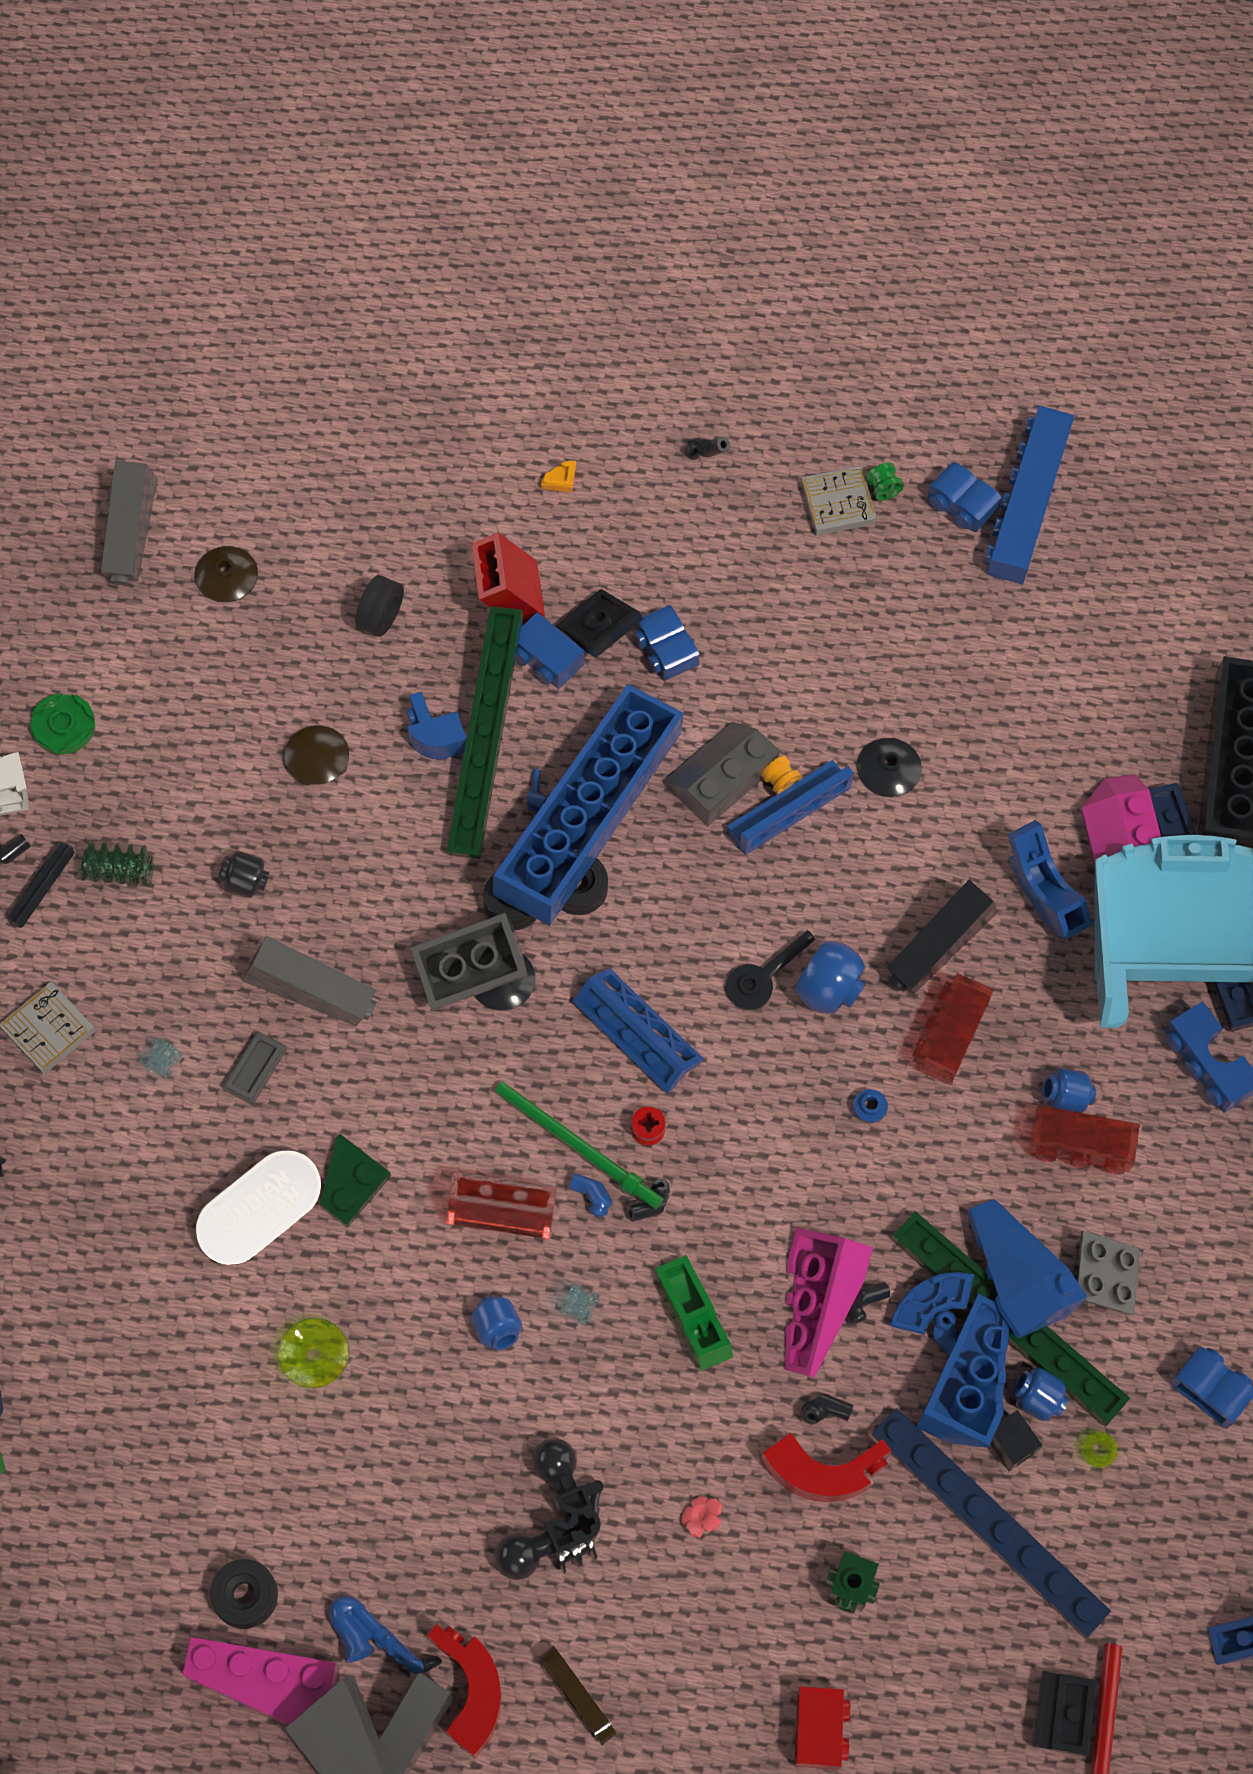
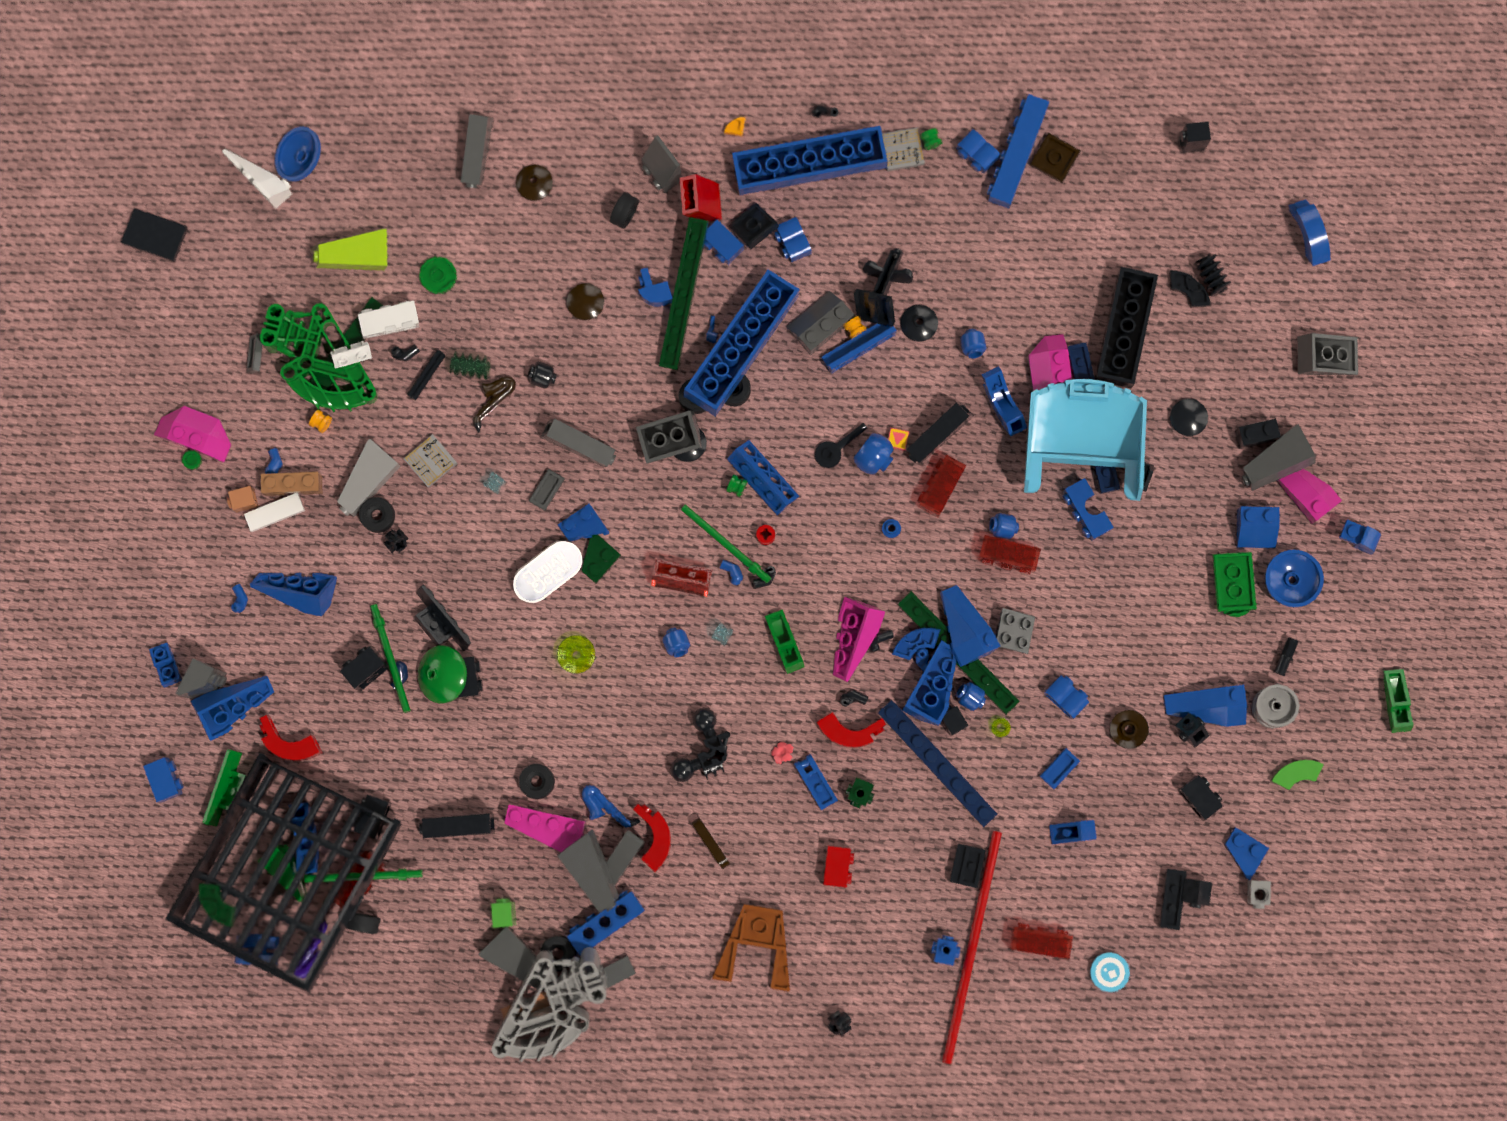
camera: 10 degrees right, 15 degrees up
(59, 1308) = (437, 622): none -> black bracket
(65, 1400) = (449, 674): none -> green dish
(94, 1686) = (457, 826): none -> black slope
(111, 1405) = (473, 684): none -> black brick
(169, 904) = (499, 390): none -> dark brown piece
(320, 1123) = (583, 524): none -> blue wing
(440, 531) = (661, 166): none -> dark grey slope
(592, 1044) = (736, 485): none -> green wheel
(686, 518) = (809, 160): none -> blue brick
(768, 1569) = (816, 782): none -> blue plate
(818, 734) = (876, 305): none -> black piece
(873, 954) = (898, 438): none -> tile
(985, 793) = (973, 343): none -> blue head
(1091, 504) = (1055, 158): none -> dark brown tile
(1215, 1520) = (1059, 768): none -> blue tile

